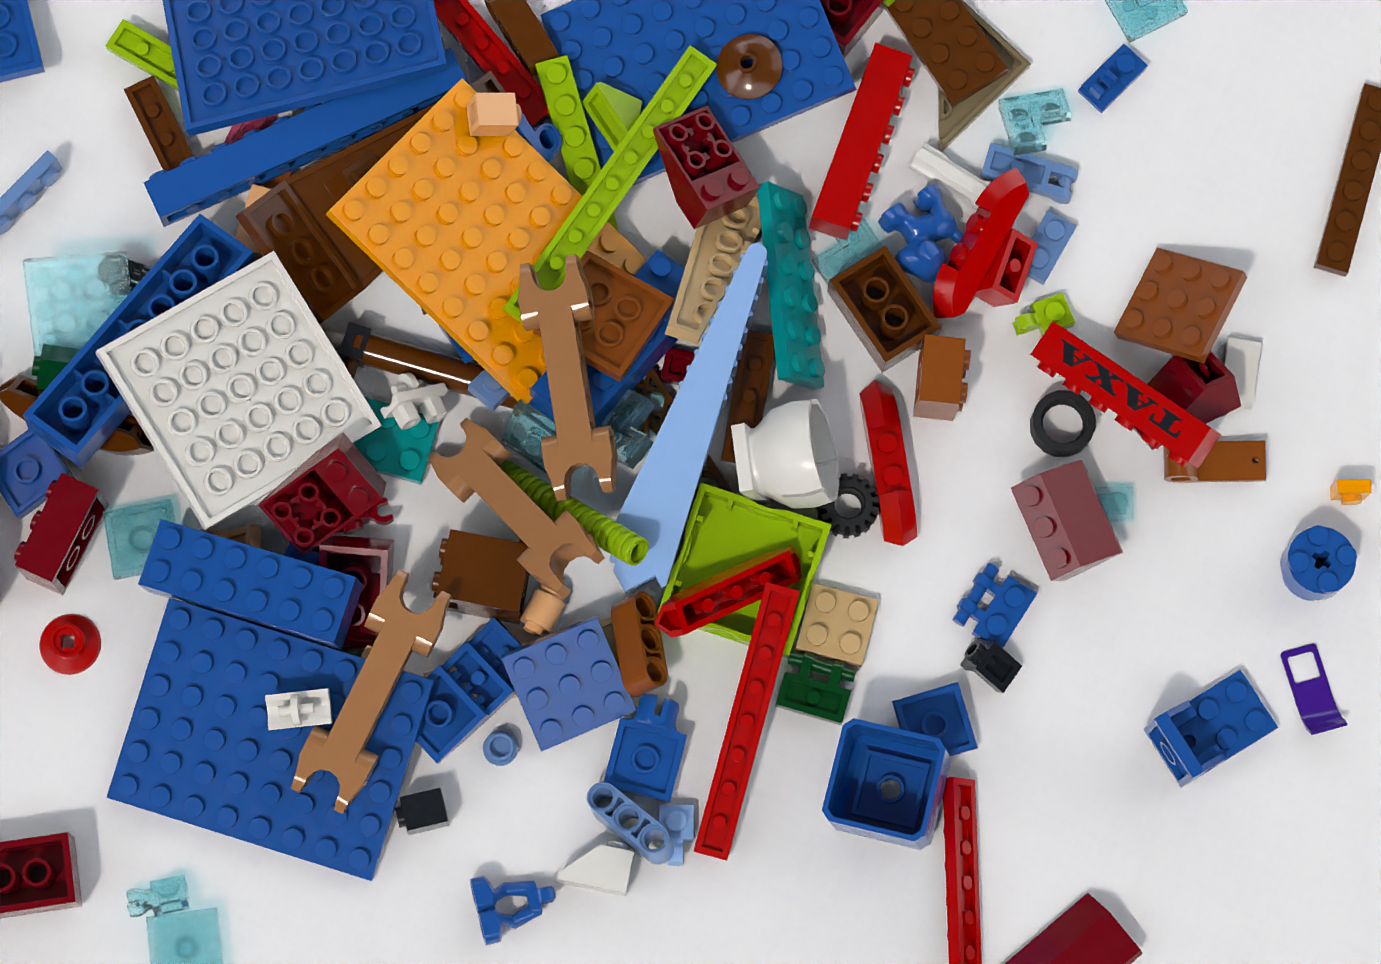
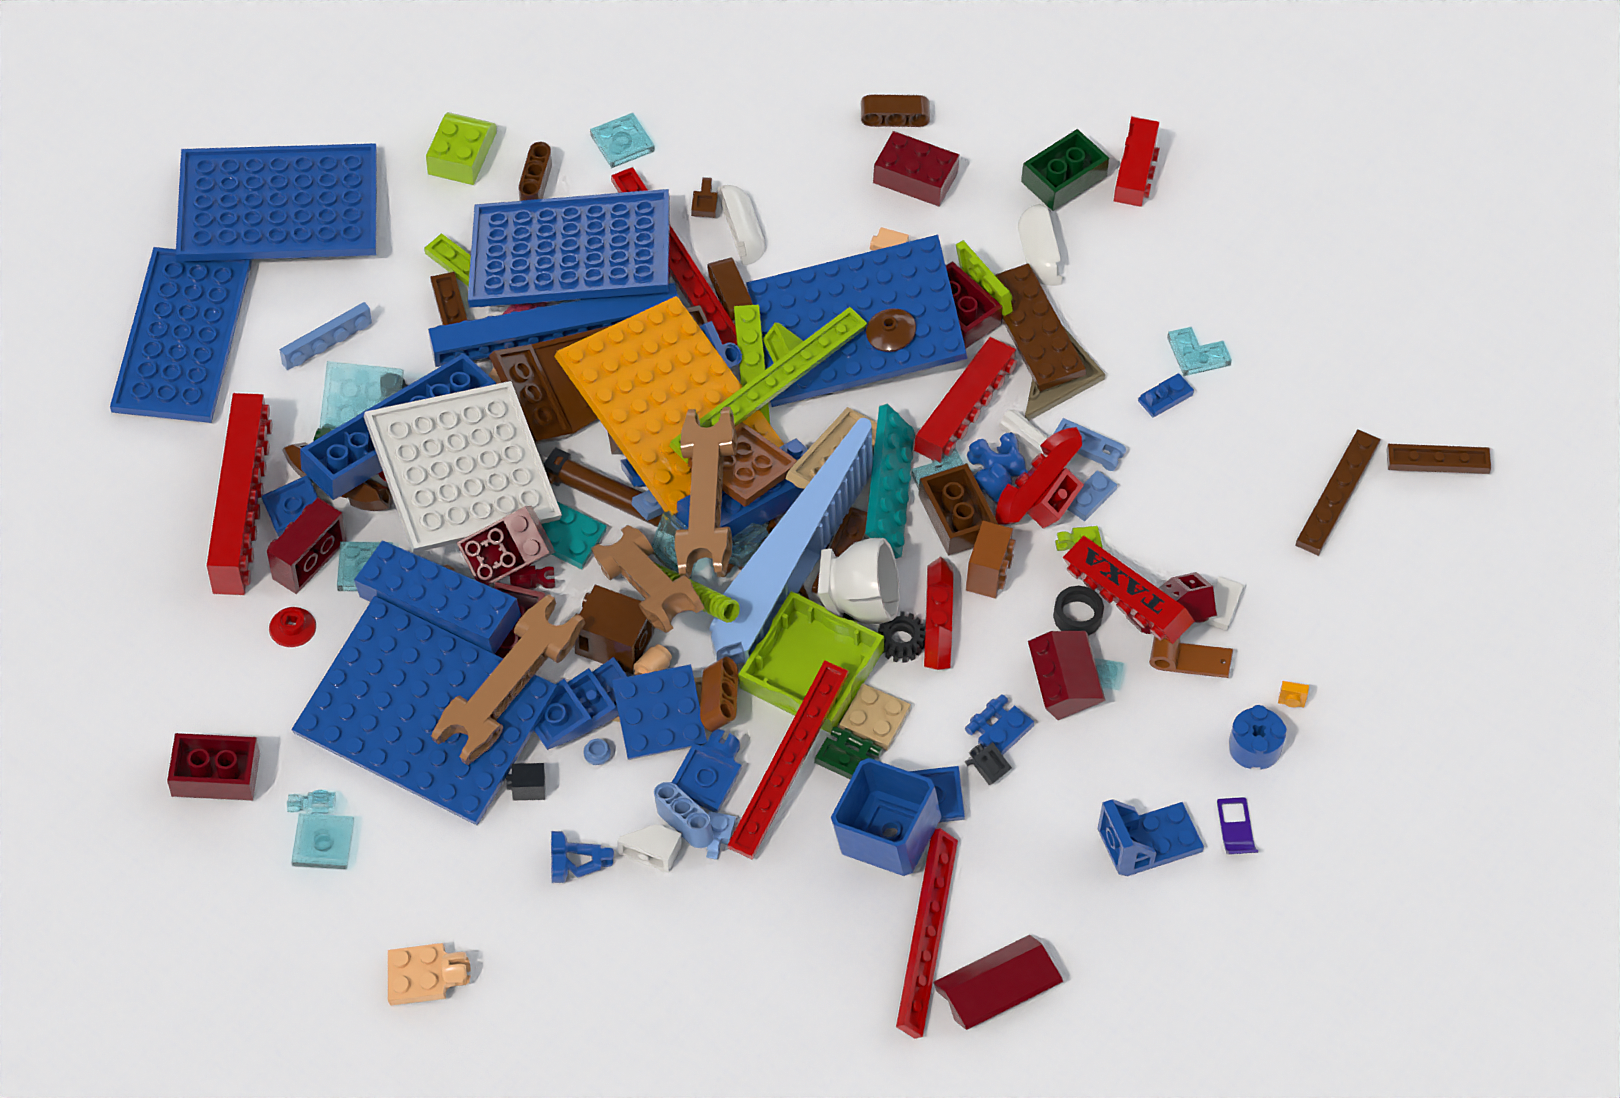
camera: 15 degrees right, 20 degrees down
(299, 709) = (451, 680): white hips -> none
(412, 396) = (588, 505): white hips -> none
(493, 114) = (693, 318): light nougat brick -> none
(704, 167) = (841, 387): dark red slope -> none
(728, 591) = (791, 666): red brick -> none
(1027, 114) = (1093, 406): clear light blue plate -> none
(1180, 305) = (1184, 544): dark orange plate -> none

